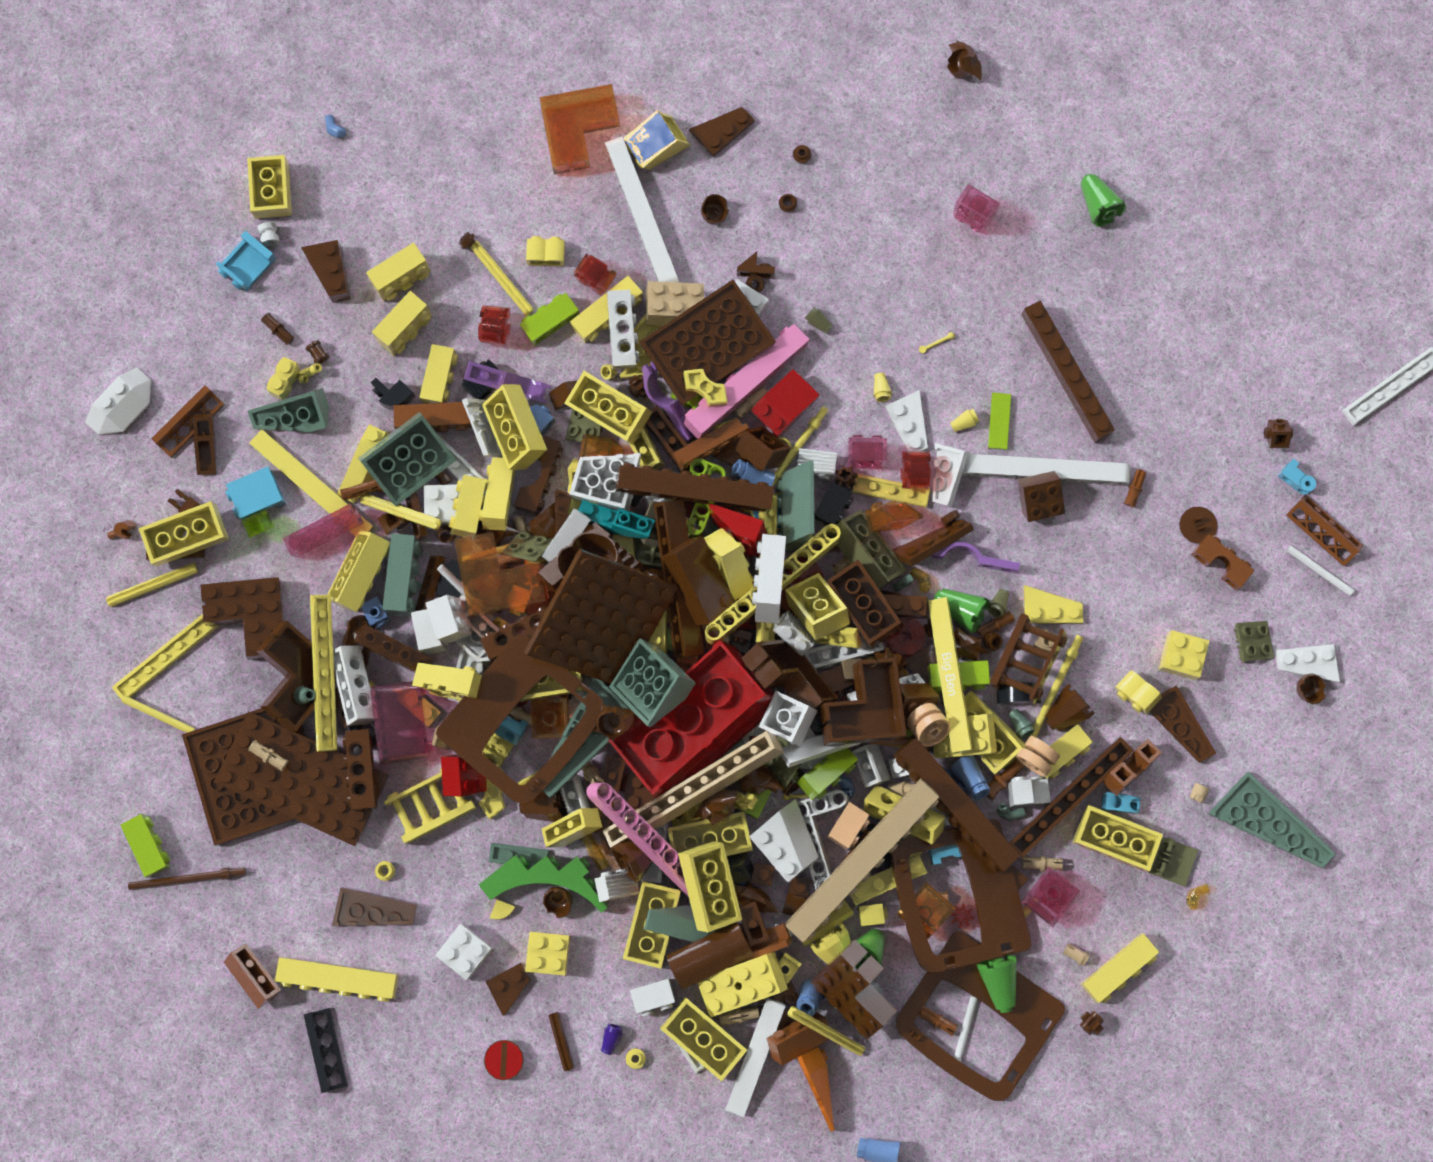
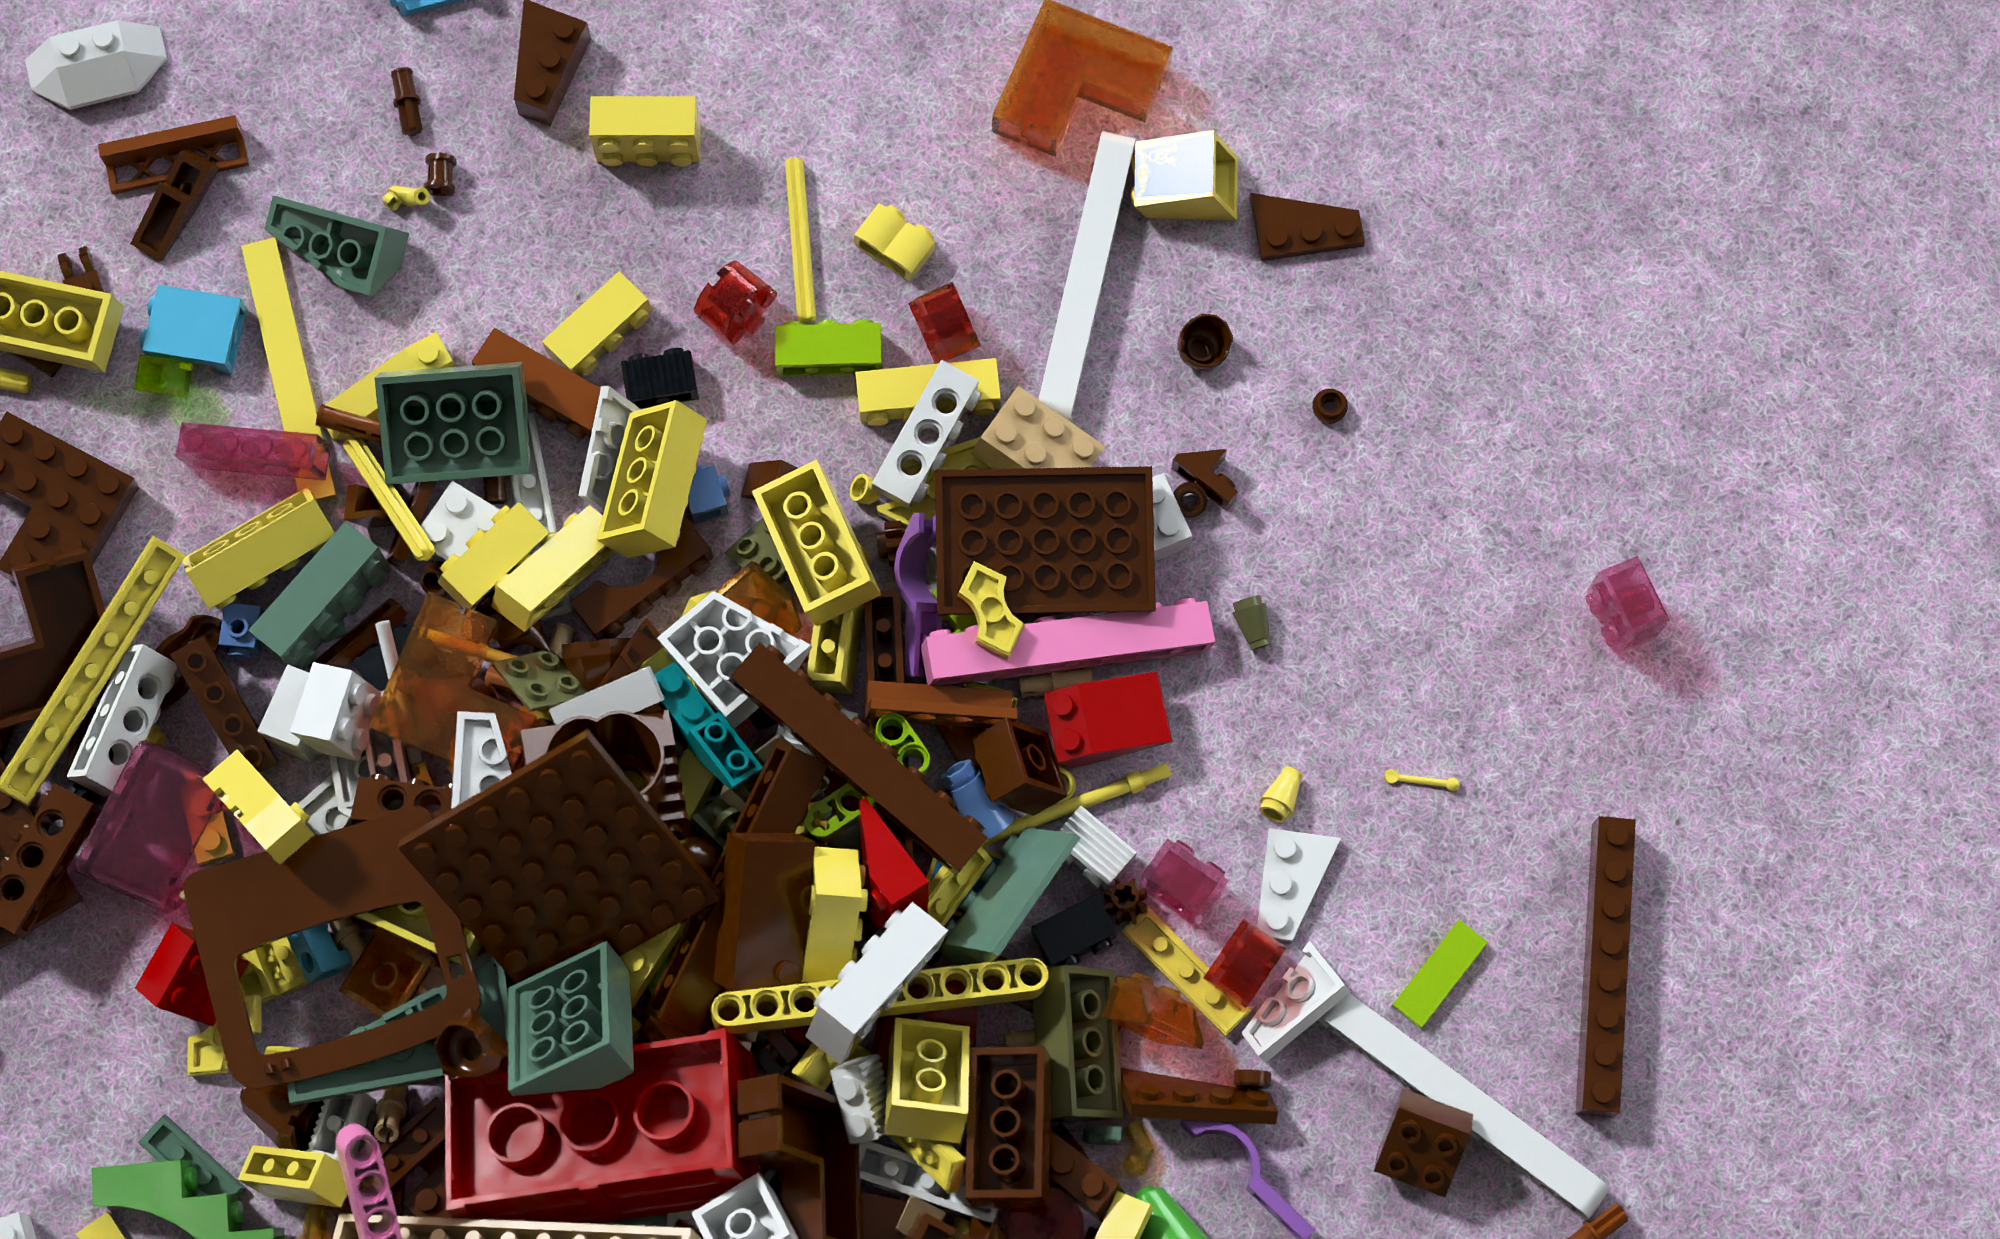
camera: 30 degrees right, 5 degrees down
(281, 382) = (354, 184): light yellow brick -> none
(300, 695) = (32, 678): sand green cone -> none
(397, 395) = (512, 316): black brick -> none
(402, 323) = (595, 211): light yellow brick -> none
(428, 823) = (89, 1017): light yellow fence -> none
(467, 240) = (786, 148): reddish brown plate -> none
(496, 378) = (676, 383): medium lavender piece -> none
(529, 597) = (478, 755): none -> white wing
(801, 159) = (1404, 353): reddish brown plate -> none
(964, 61) = (1764, 359): reddish brown hair -> none
(965, 420) = (1382, 936): light yellow cone -> none
(1101, 200) = (1845, 724): bright green cone -> none

